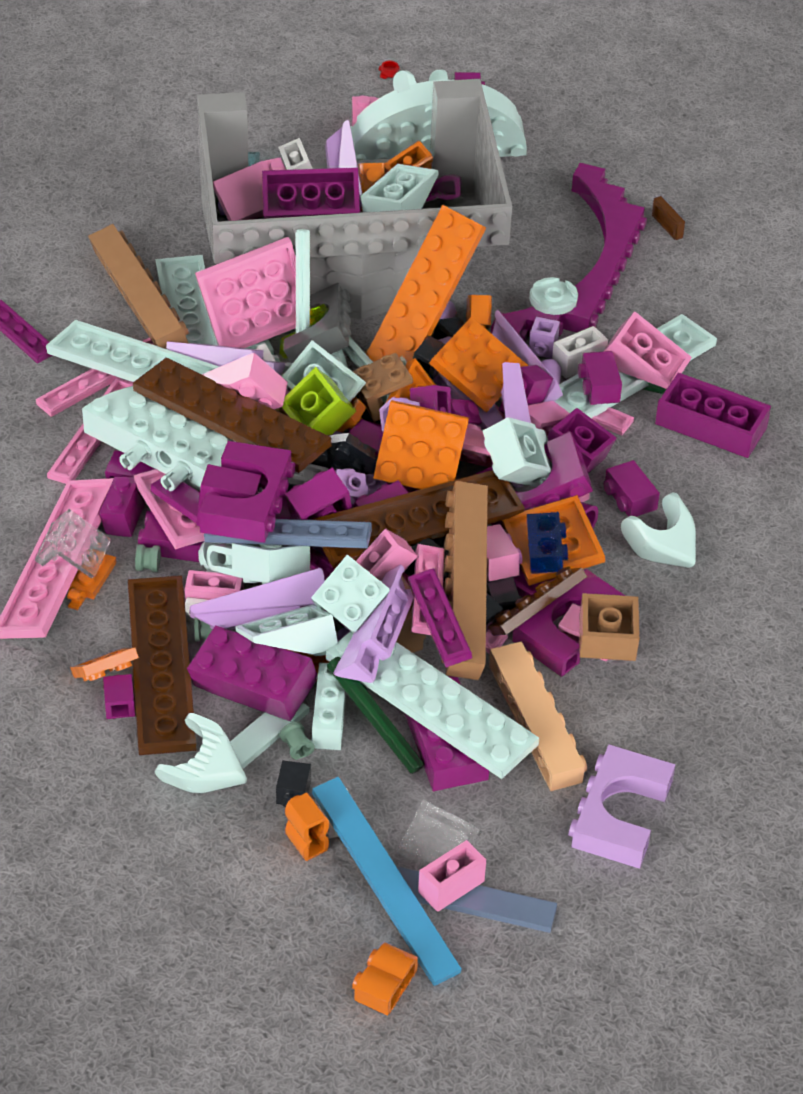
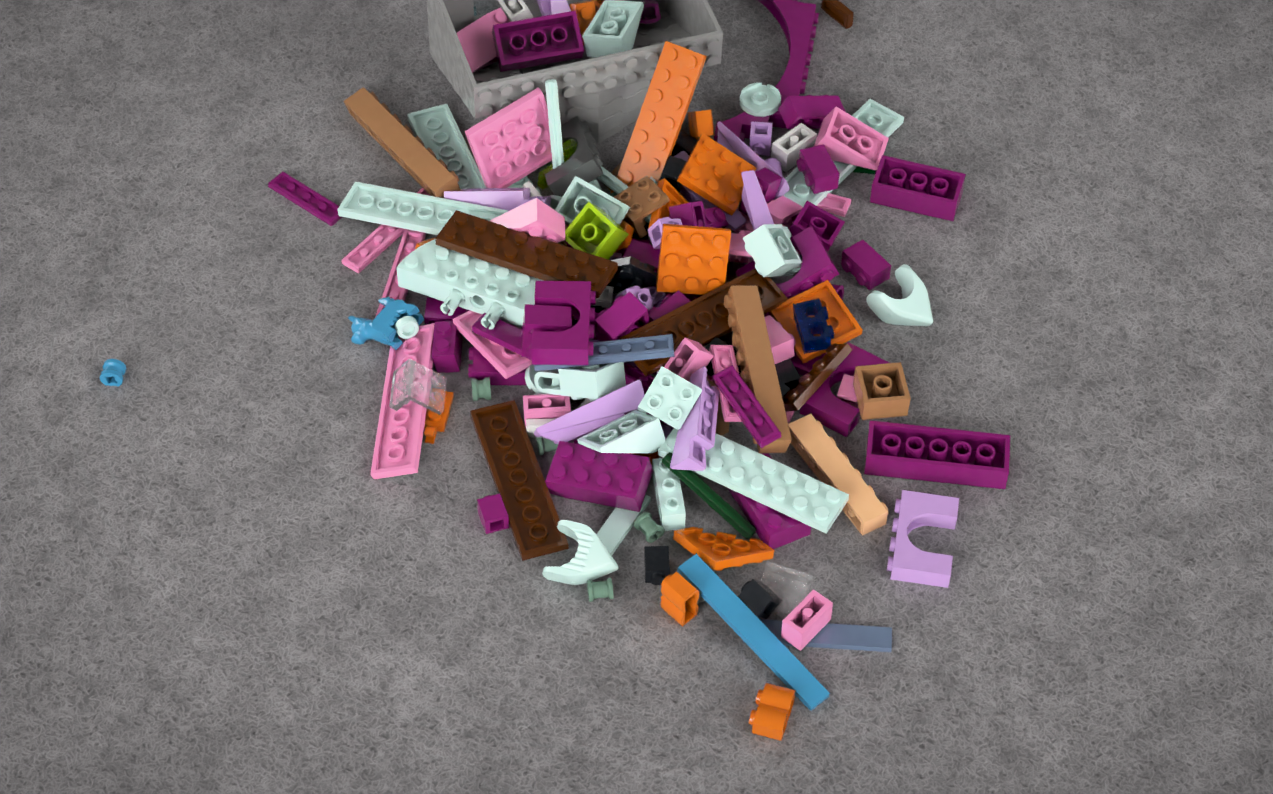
camera: 10 degrees left, 5 degrees up
(61, 471) = (383, 325): none -> dark azure animal
(80, 477) = (407, 327): none -> light aqua tile
(113, 661) = (470, 489): orange plate -> none
(218, 802) = (600, 589): none -> sand green bush
(377, 780) = (722, 549): none -> orange plate
(402, 842) = (759, 598): none -> black brick
(604, 313) = (808, 110): none -> magenta brick
(662, 711) = (937, 454): none -> magenta brick

